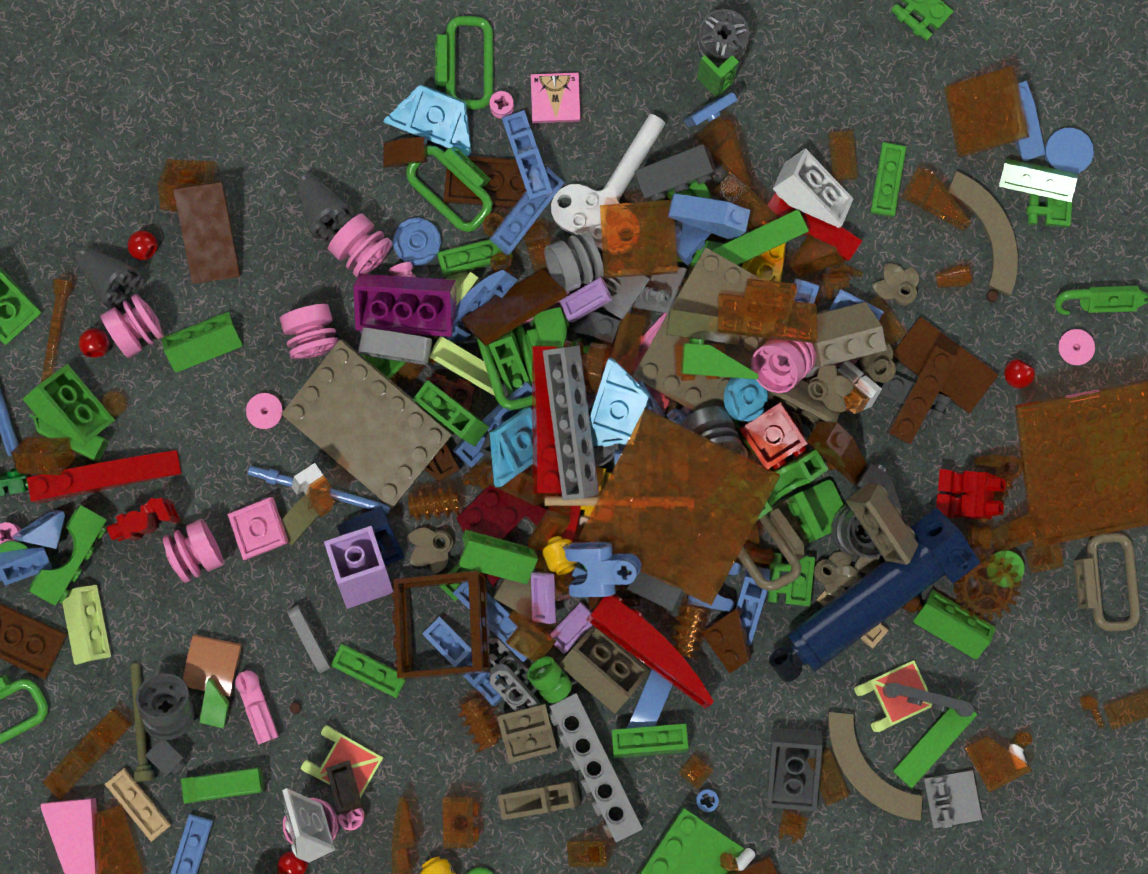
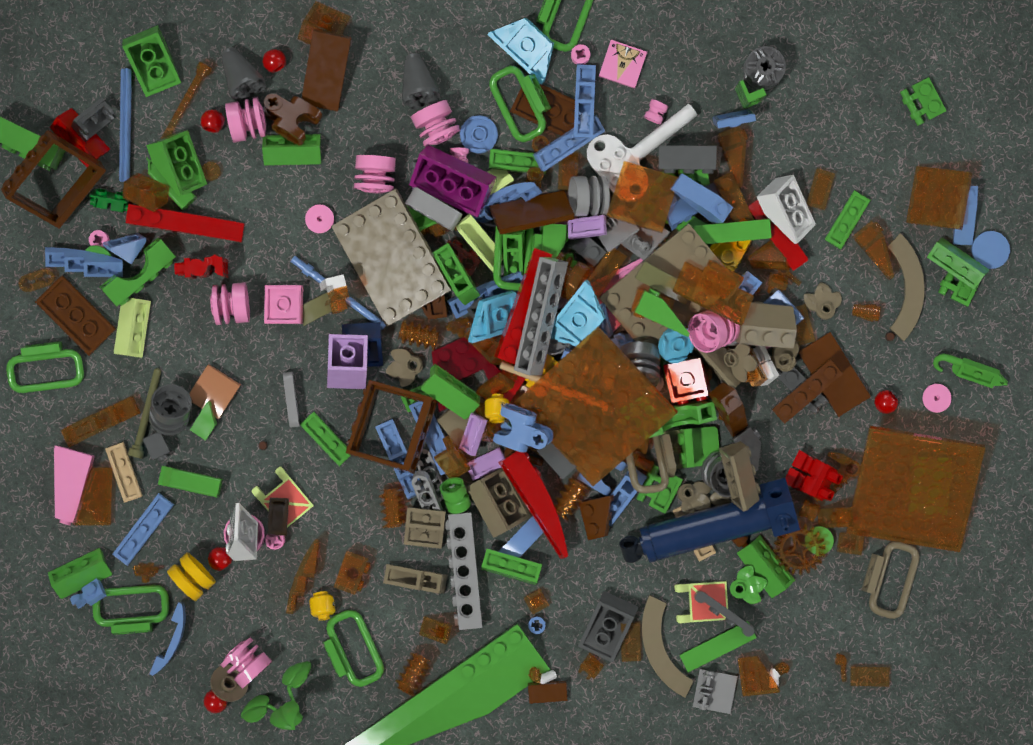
camera: 20 degrees right, 5 degrees up
(182, 302) = (289, 114): none -> reddish brown piece
(256, 706) = (235, 434): bright pink piece -> none
(404, 152) = (495, 64): reddish brown slope -> none
(615, 137) = (656, 112): none -> bright pink wheel
(945, 652) = (751, 585): none -> bright green plate

